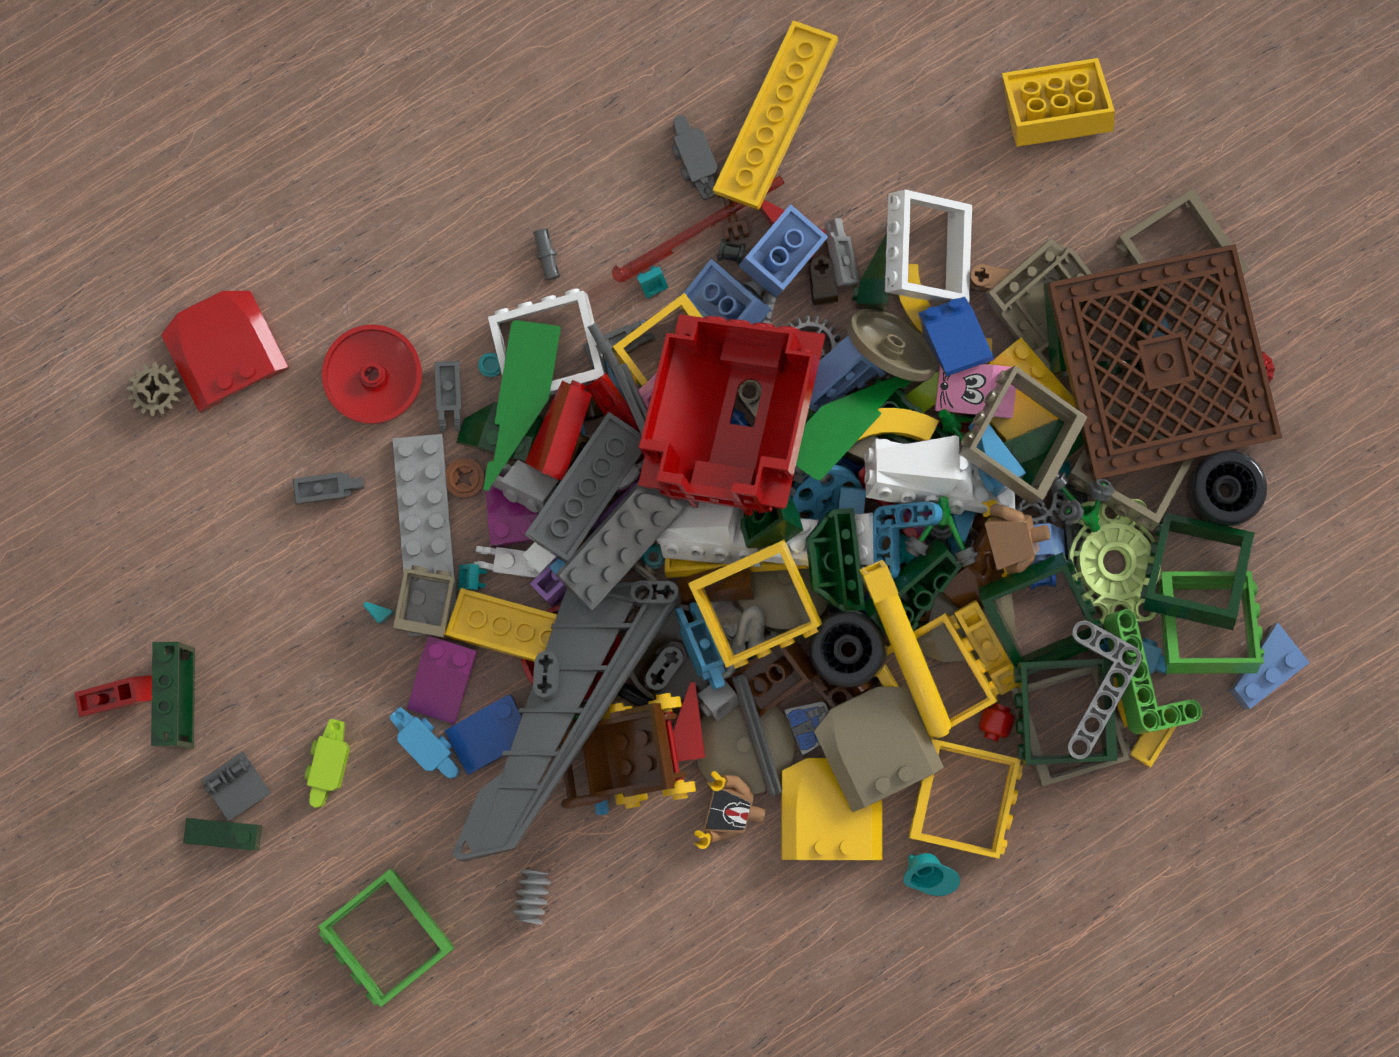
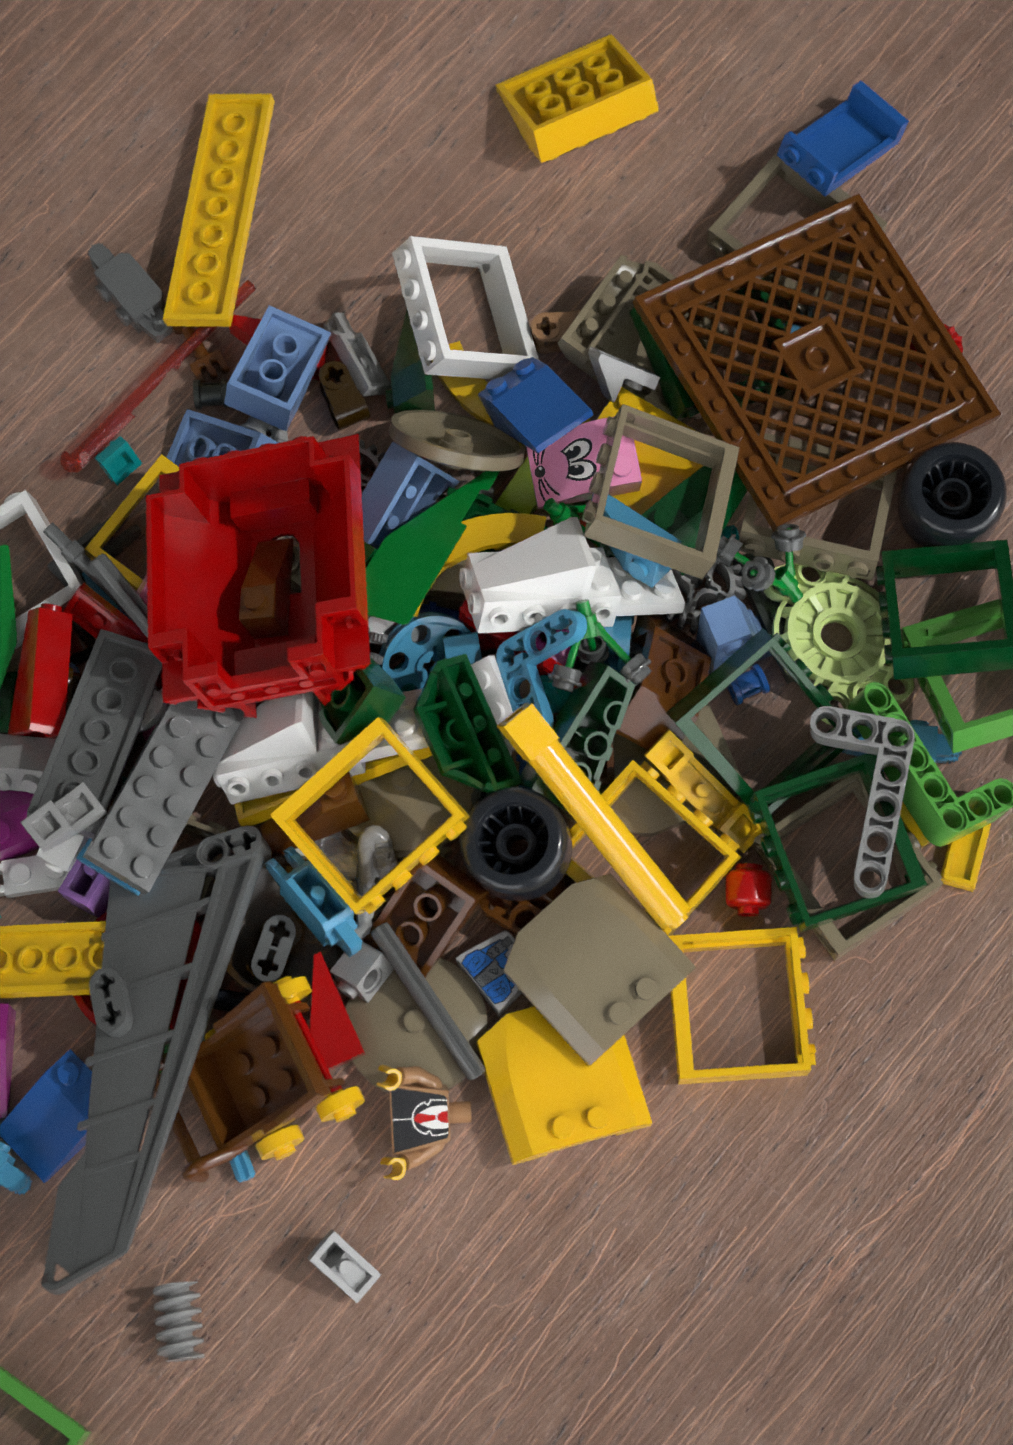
camera: 15 degrees left, 10 degrees down
(549, 544) = (65, 818): none -> light grey slope
(650, 893) = (343, 1266): none -> light grey slope
(653, 549) = (217, 801): teal plate -> none
(731, 418) = (267, 590): none -> reddish brown slope
(930, 876) = (725, 1124): teal piece -> none
(1012, 537) = (691, 626): medium nougat torso -> none
(1021, 327) = (614, 372): none -> light grey slope
(1238, 196) = (844, 140): none -> blue panel

